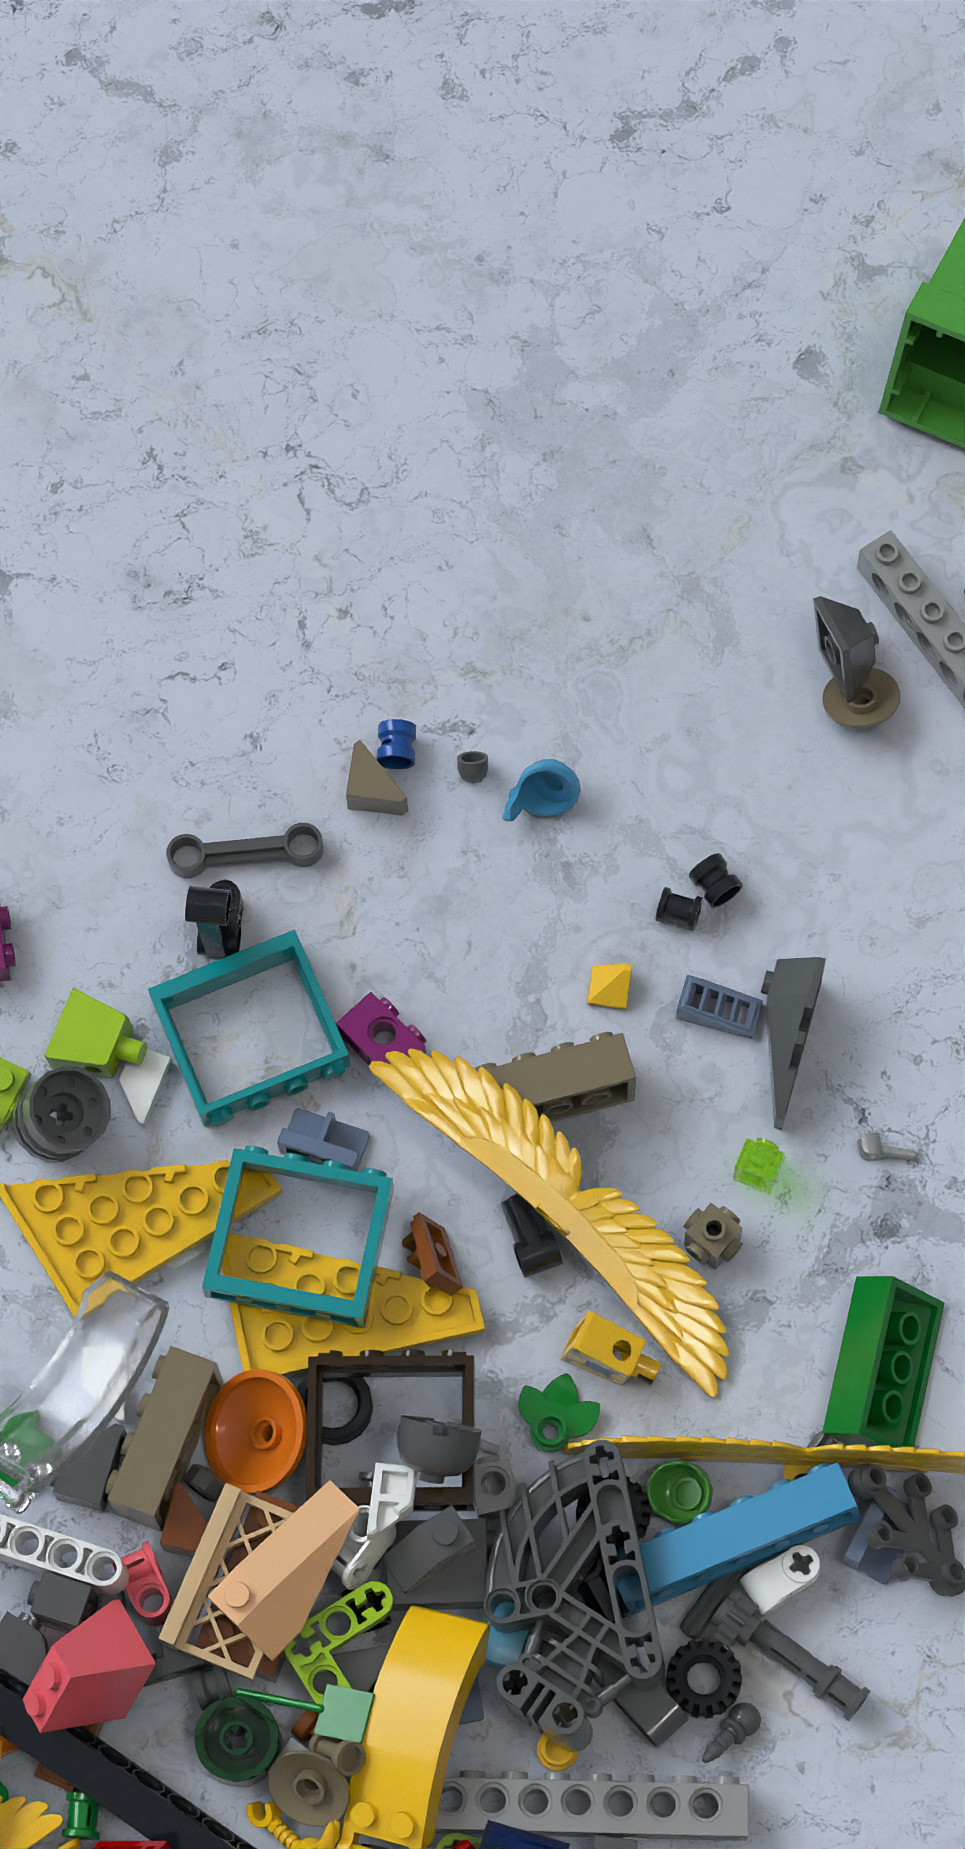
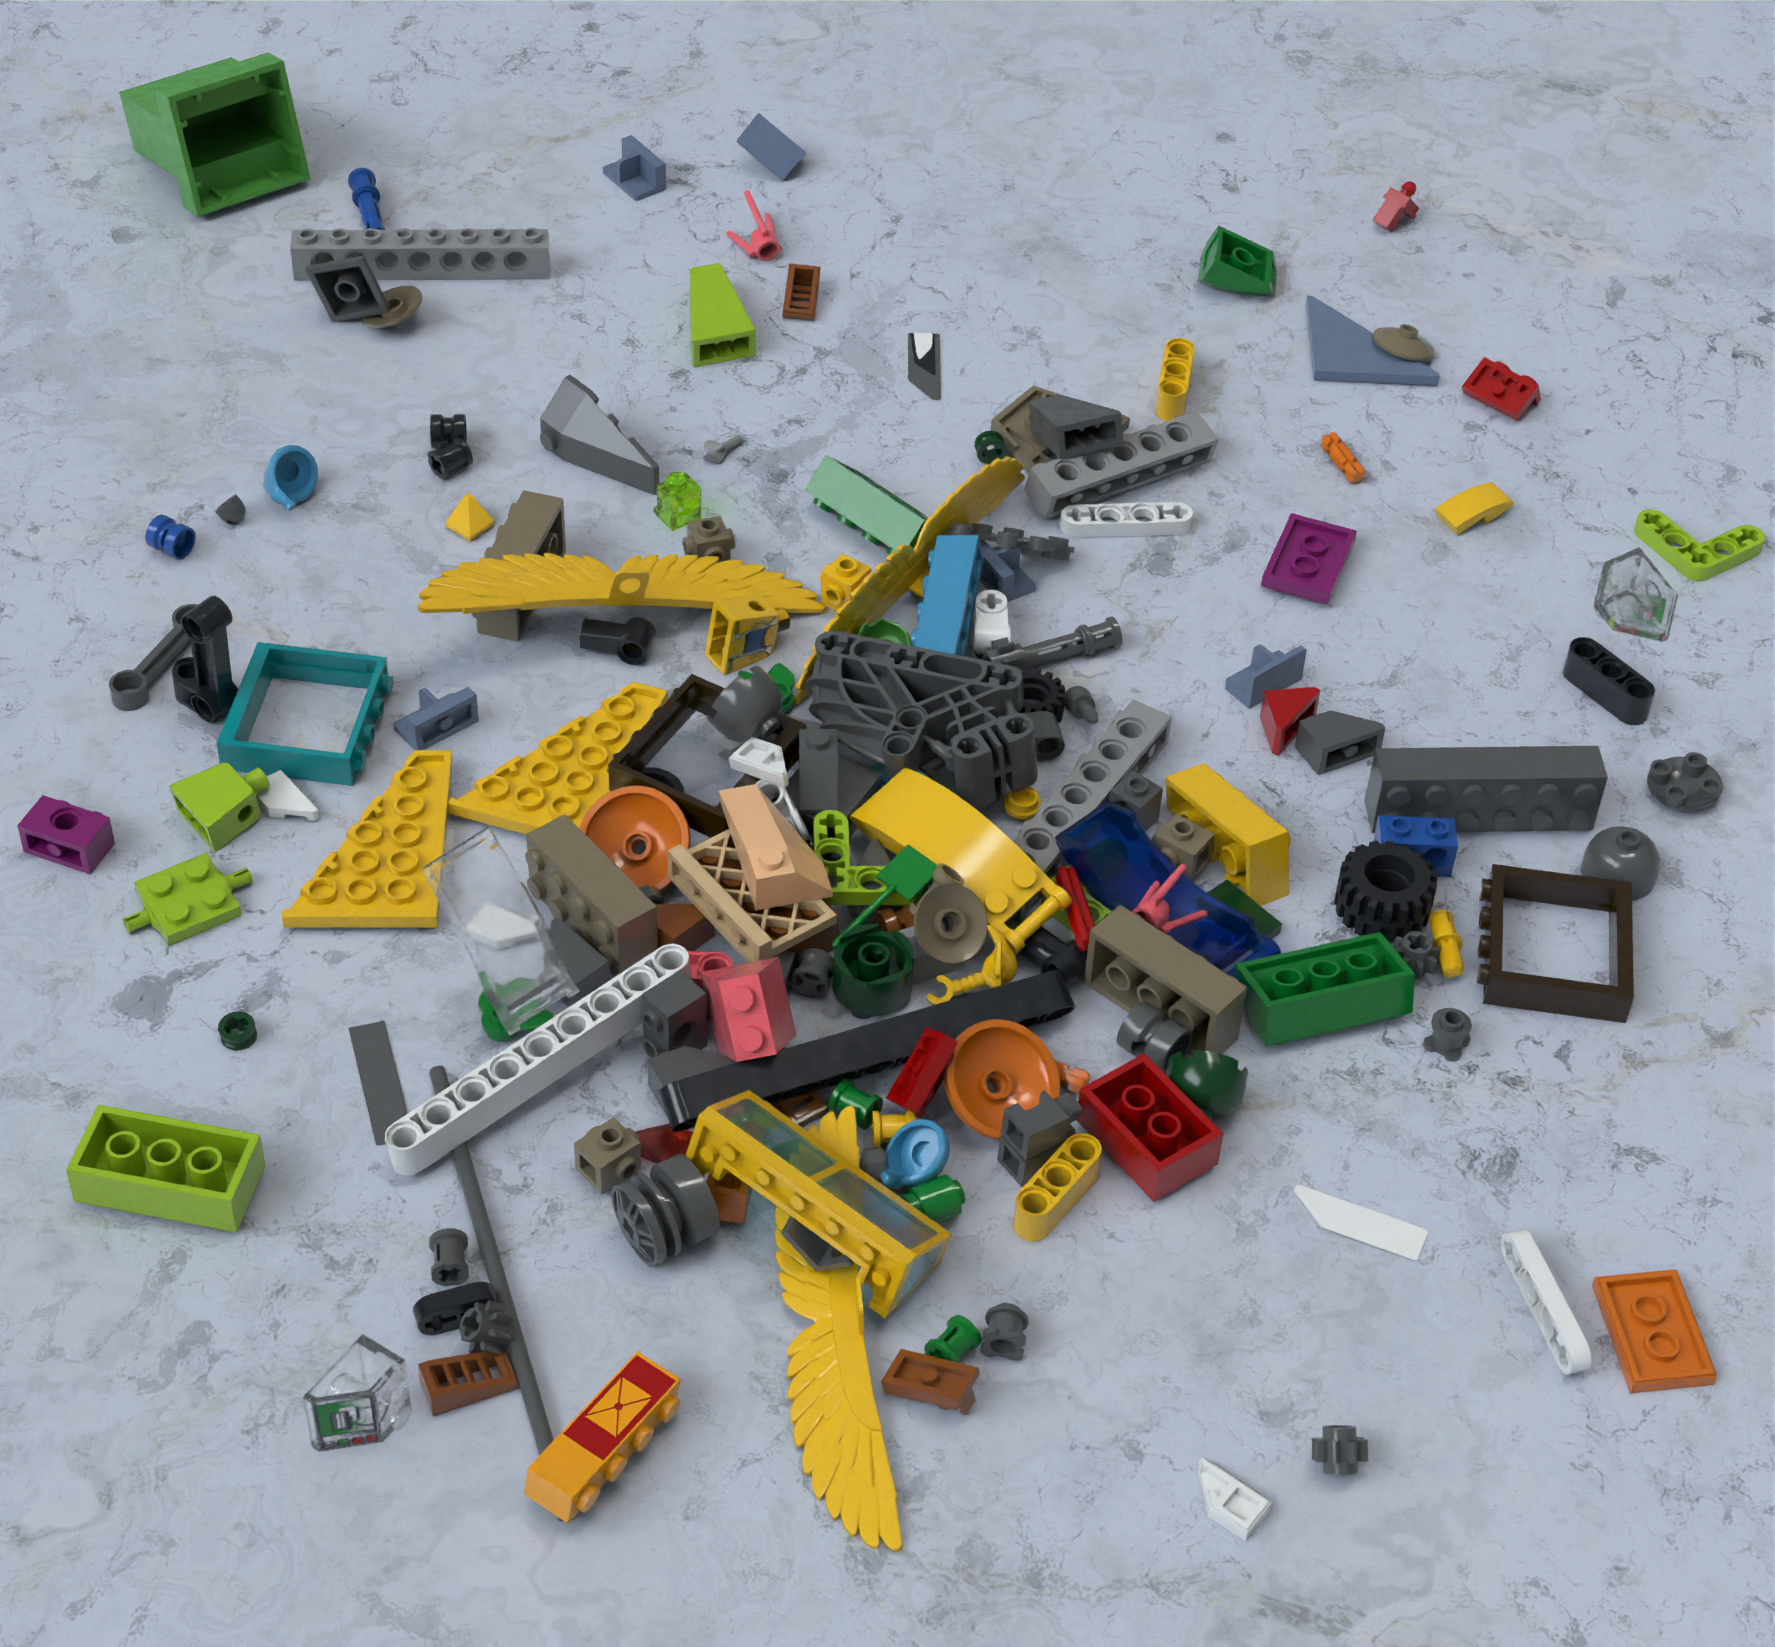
camera: 65 degrees left, 25 degrees down
(79, 1103) = (267, 834): dark grey wheel -> none
(287, 1299) = (528, 786): teal window -> none
(371, 786) = (187, 562): dark tan slope -> none
(372, 1017) = (398, 639): magenta brick -> none
(432, 1255) = (576, 687): dark orange plate -> none
(723, 994) = (534, 475): sand blue slope -> none
(739, 1416) = (840, 580): none -> yellow brick

